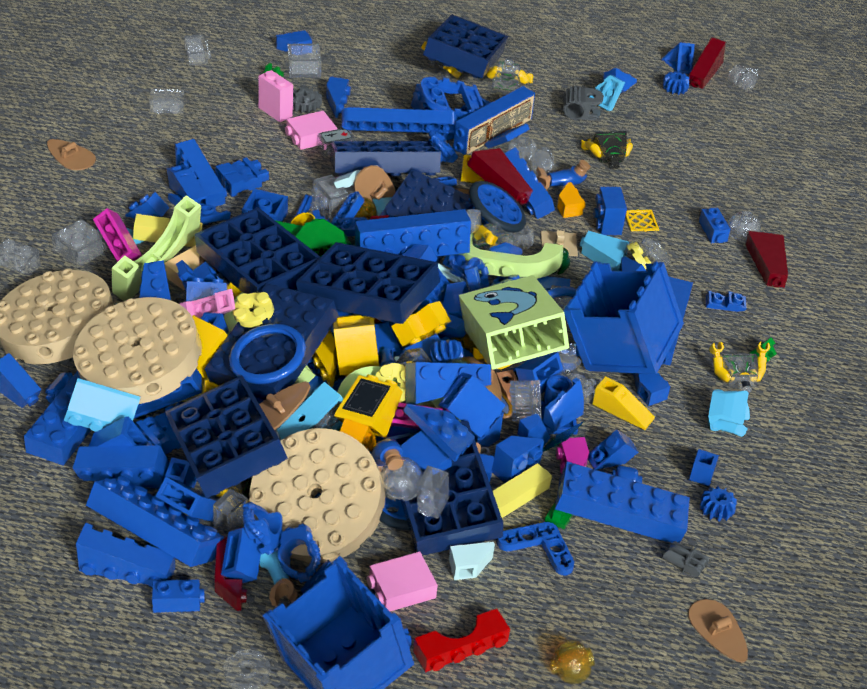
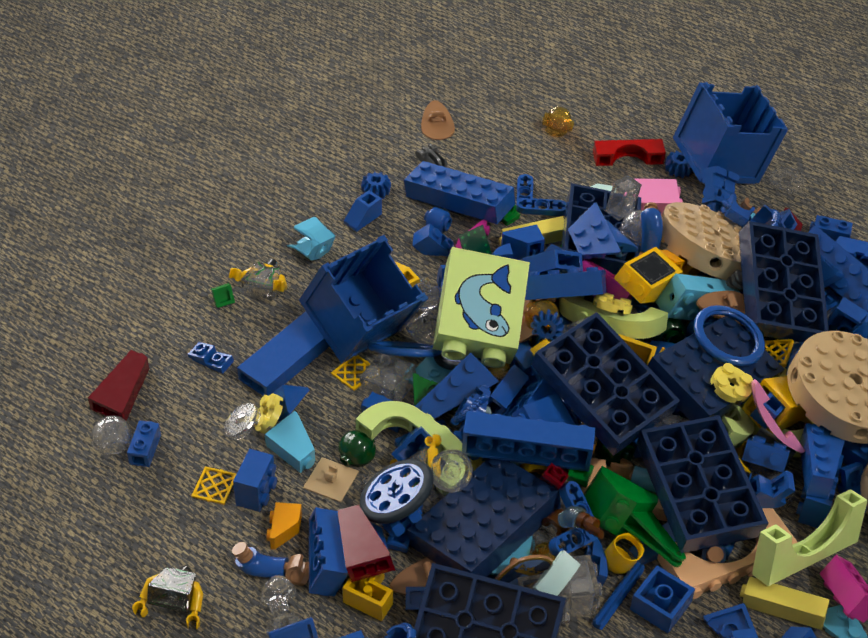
camera: 155 degrees left, 5 degrees up
(349, 205) = (573, 517): none -> reddish brown piece

